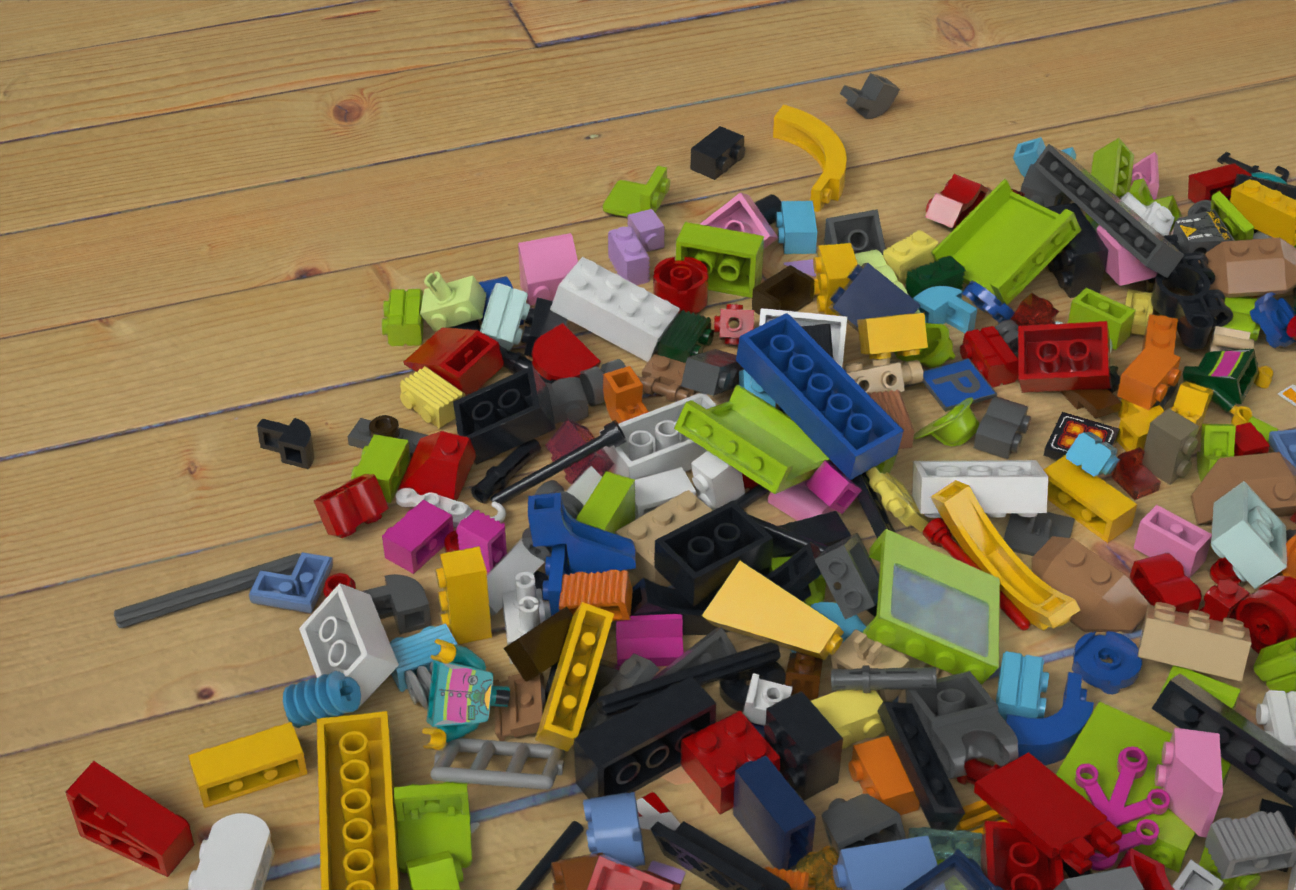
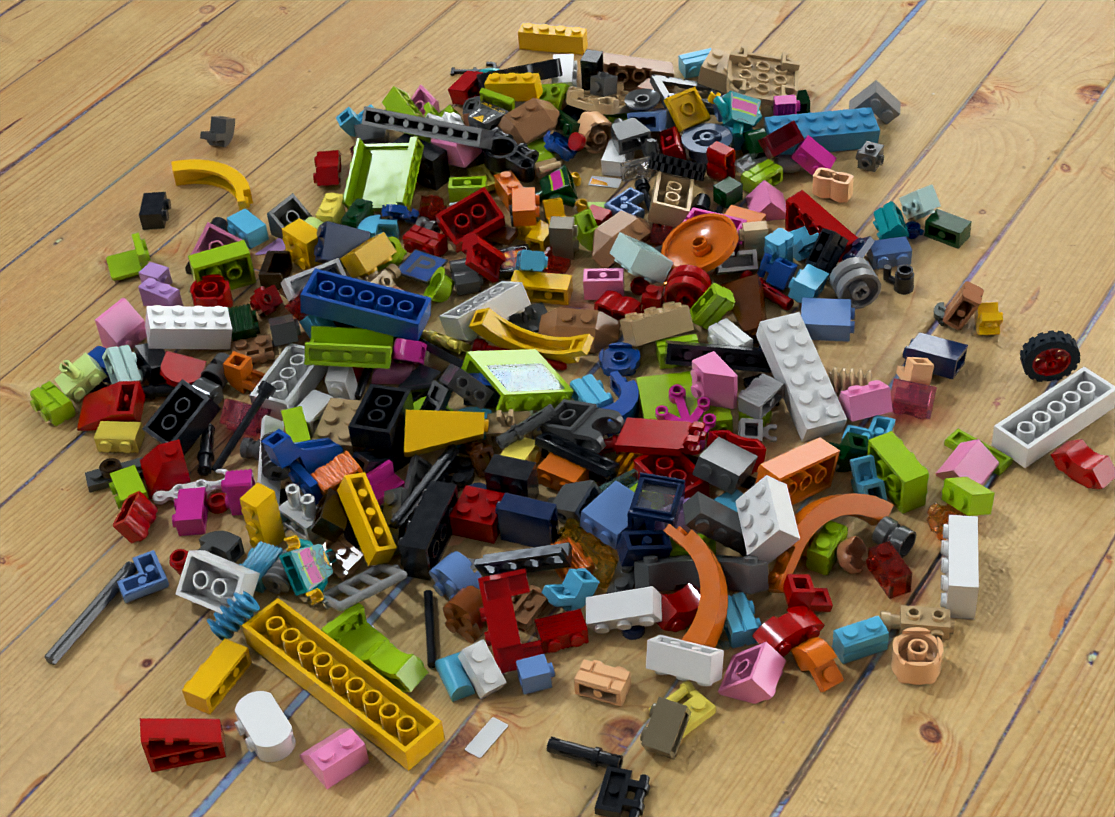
camera: 35 degrees left, 0 degrees up
(290, 440) = (57, 507): black brick -> none
(761, 696) = (472, 473): white brick -> none
(1035, 414) = (482, 256): none -> red brick

